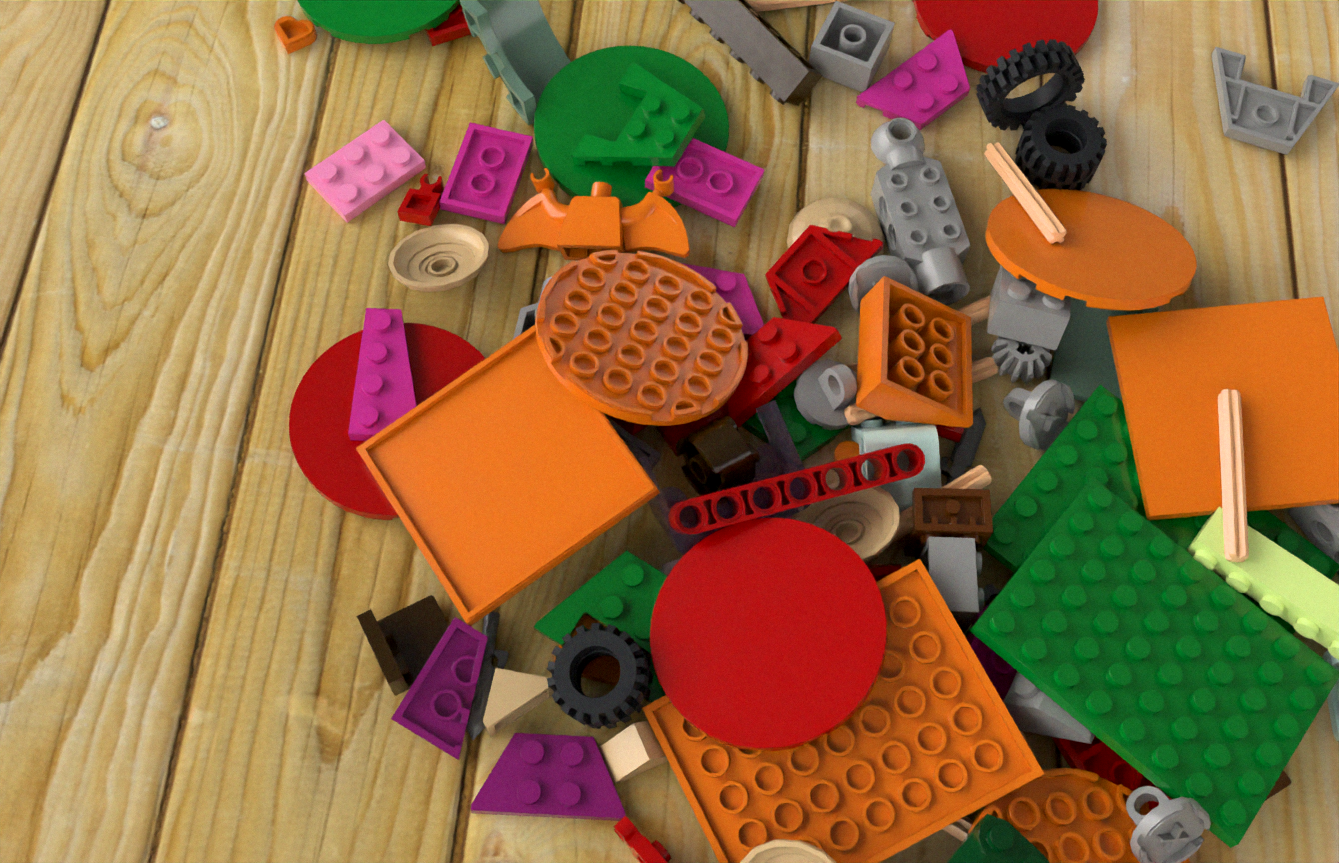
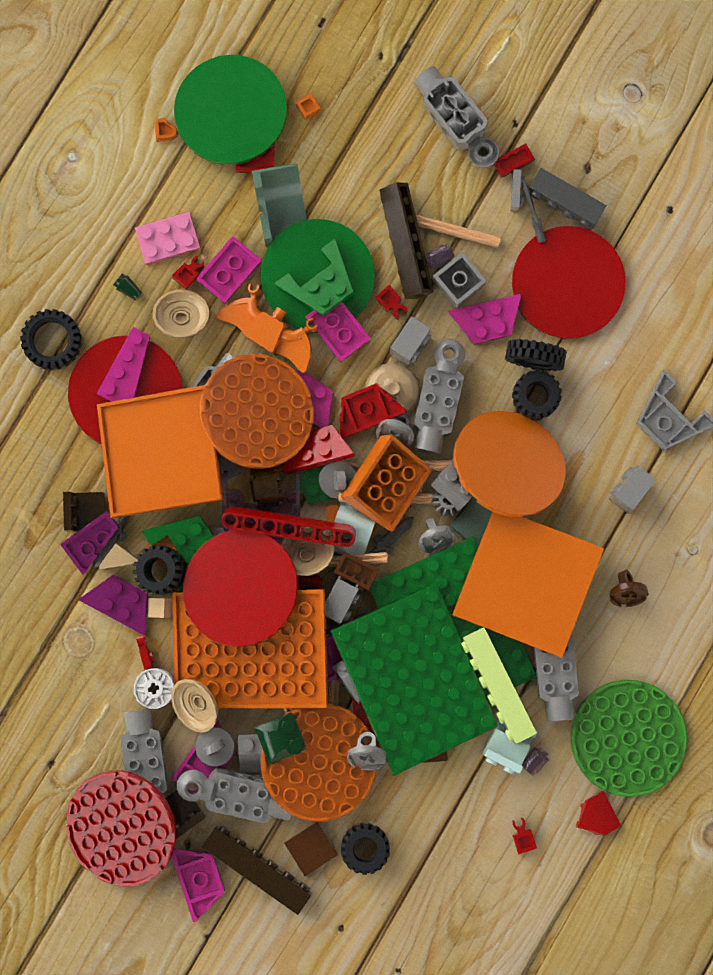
camera: 25 degrees right, 20 degrees up
(230, 426) = (39, 320): none -> black tyre
(329, 259) = (126, 286): none -> dark green cone
(762, 116) = (389, 300): none -> red plate
(803, 30) = (439, 256): none -> clear purple brick
(829, 149) = (409, 341): none -> light grey brick
(1025, 193) = (497, 414): light nougat axle -> none
(1233, 476) = (498, 615): light nougat axle -> none
(1290, 212) = (632, 489): none -> light grey brick

